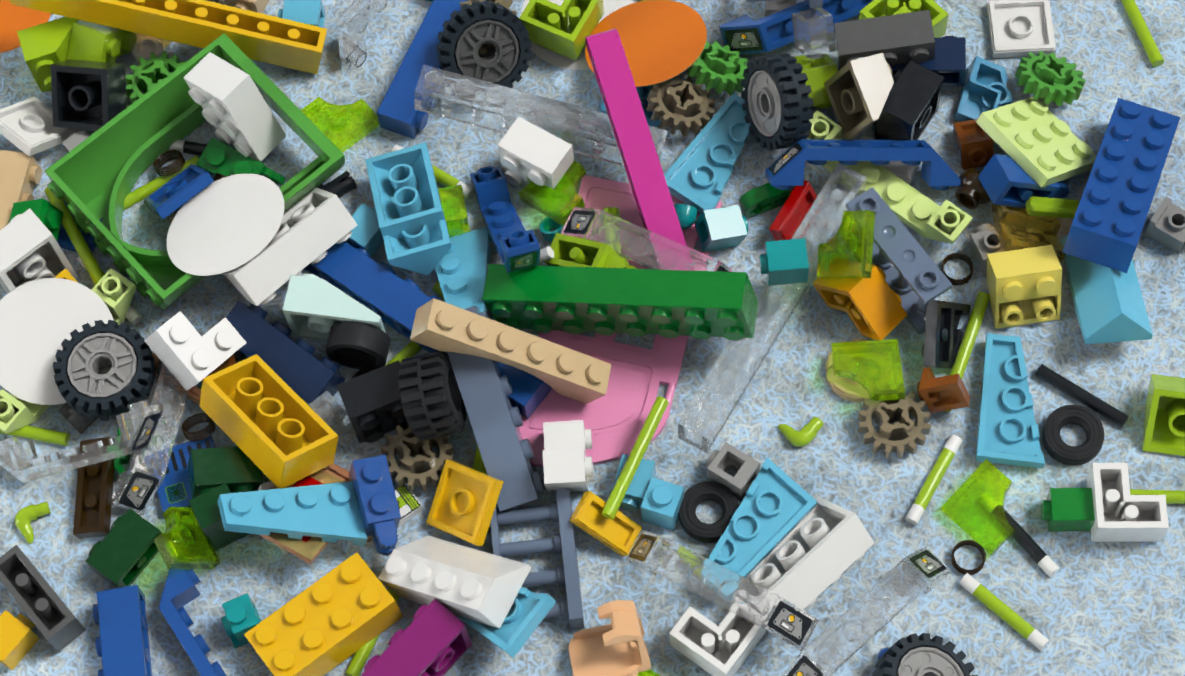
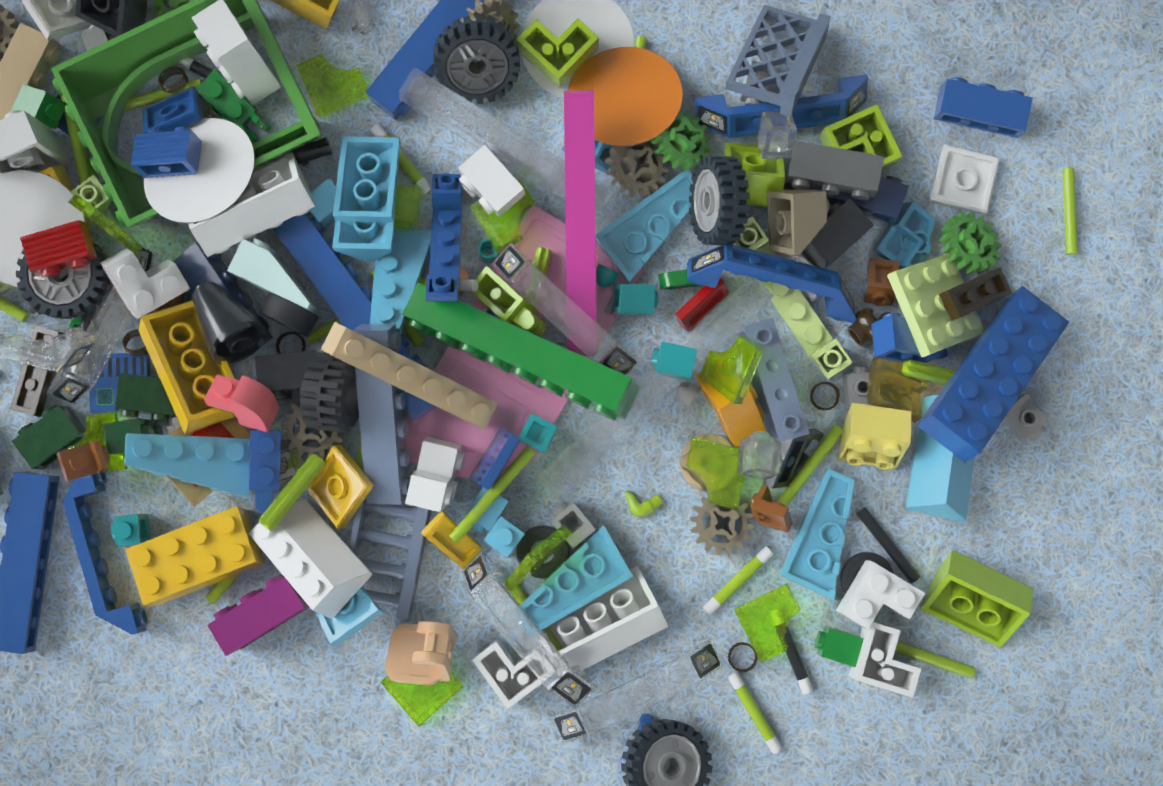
camera: 15 degrees right, 20 degrees up
(98, 334) = (59, 248): none -> red brick
(137, 309) = (105, 224): none -> clear neon green tile
(178, 542) = (83, 460): none -> dark orange bracket
(187, 216) = (166, 153): none -> blue brick
(298, 362) = (226, 324): none -> black cone
(342, 423) = (247, 398): none -> coral brick
(414, 516) = (292, 492): none -> lime axle
(626, 419) = (495, 458): none -> blue tile
(663, 380) = (538, 433): none -> teal brick
(704, 504) = (537, 558): none -> clear neon green tile
(810, 306) = (687, 392): none -> light grey hinge
(909, 335) = (759, 456): none -> clear brick
(1073, 119) = (975, 294): none -> dark brown plate
(1087, 430) = (875, 588): none -> white brick

